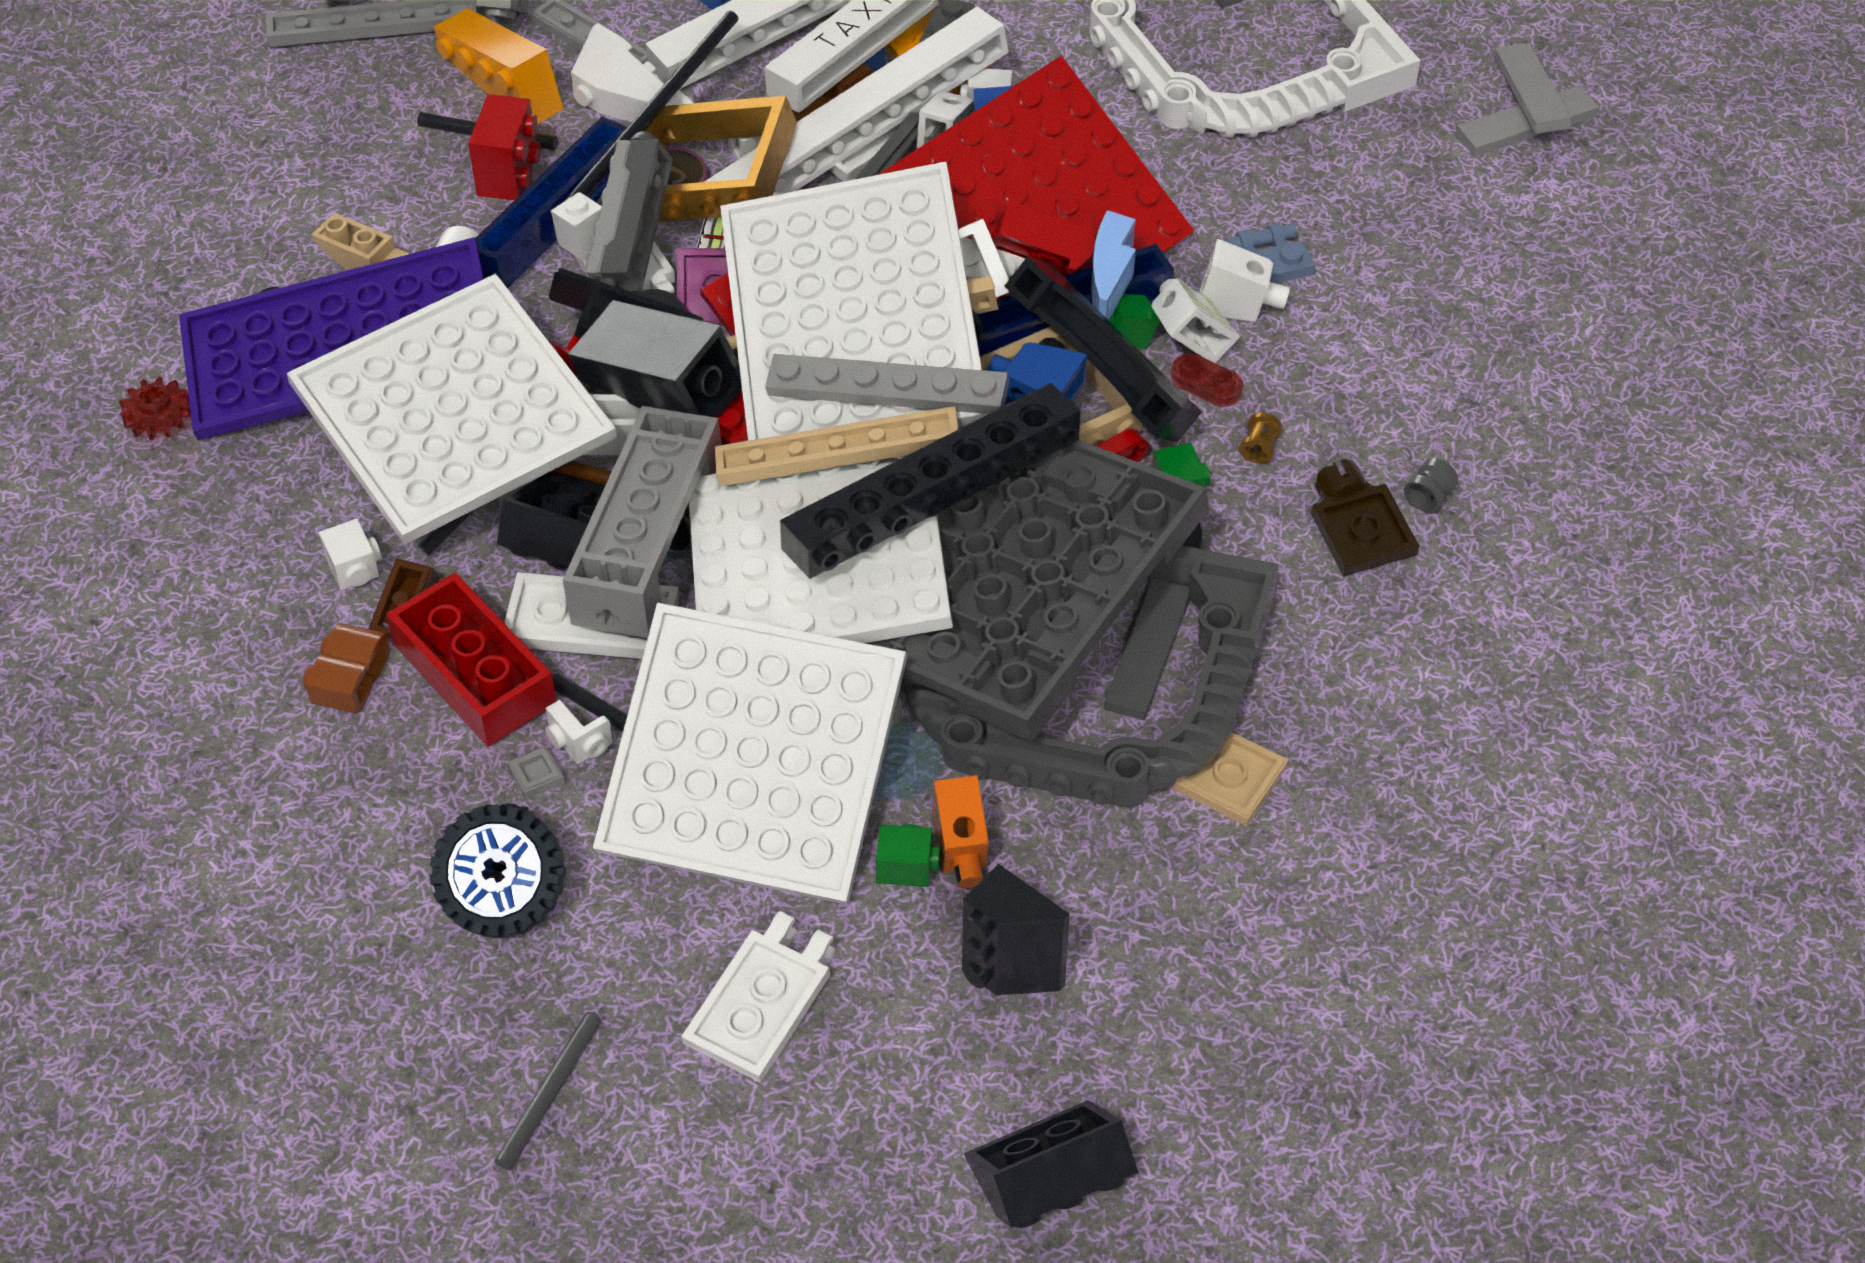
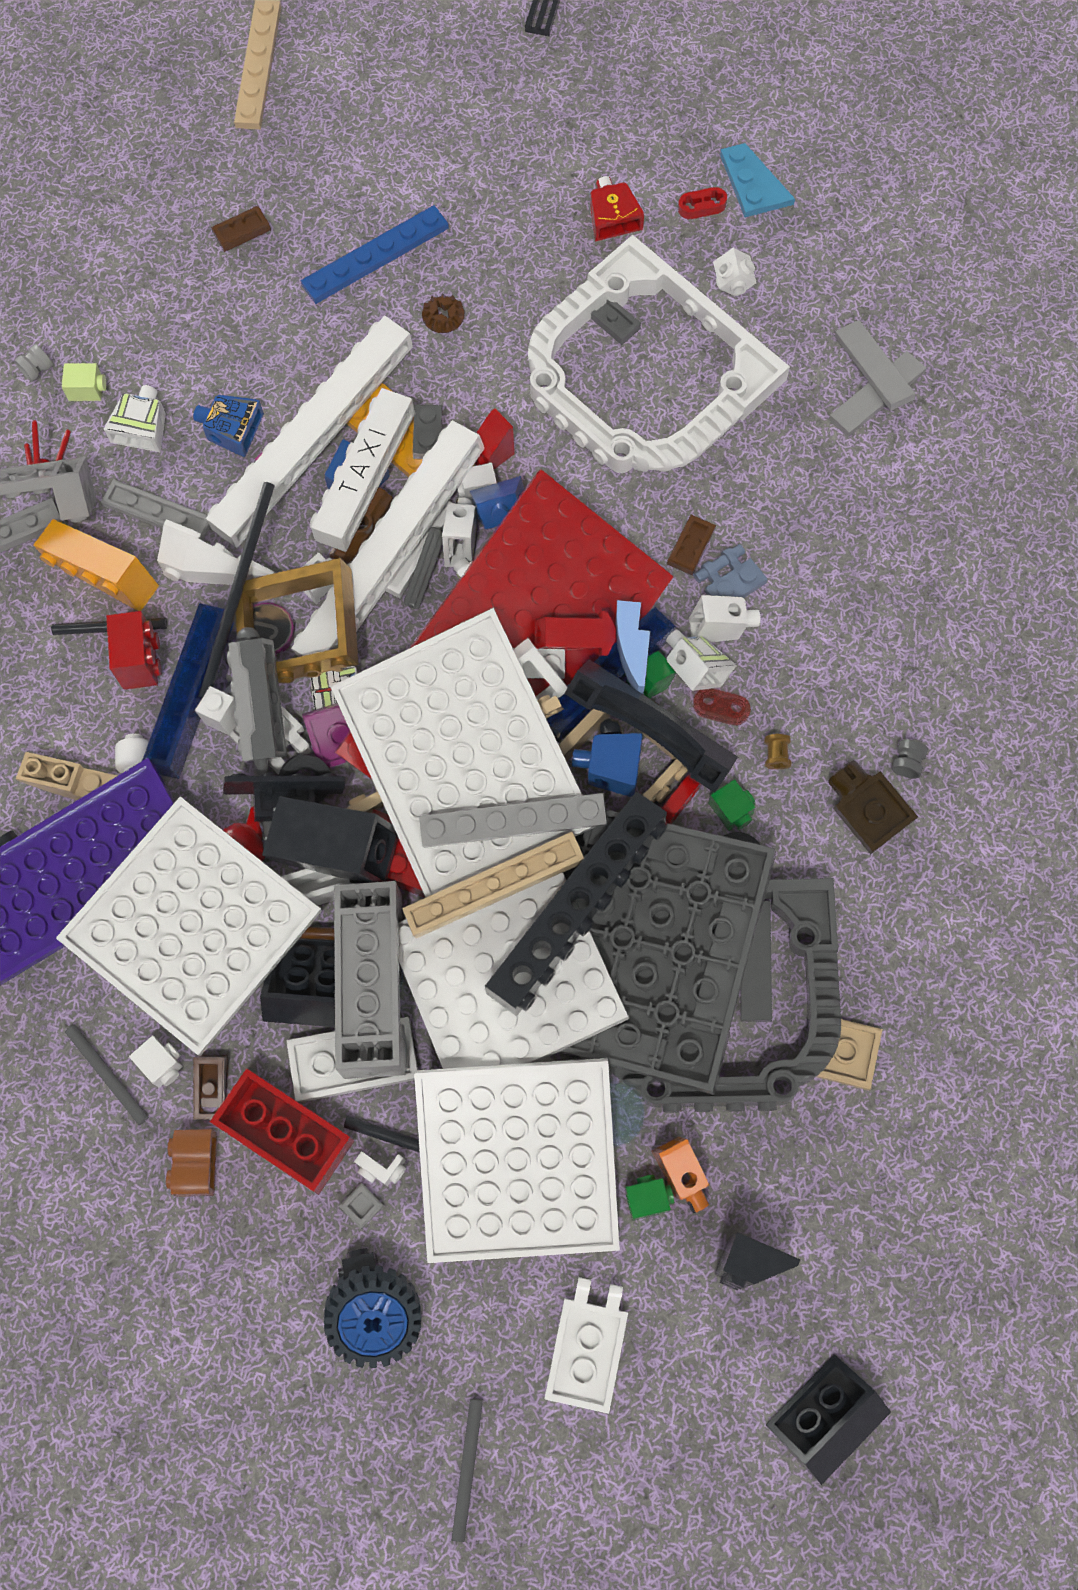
camera: 15 degrees left, 20 degrees up
(283, 558) = (106, 1074): none -> dark grey bar
(1026, 46) = (497, 439): none -> red slope
(1231, 211) = (691, 545): none -> reddish brown plate

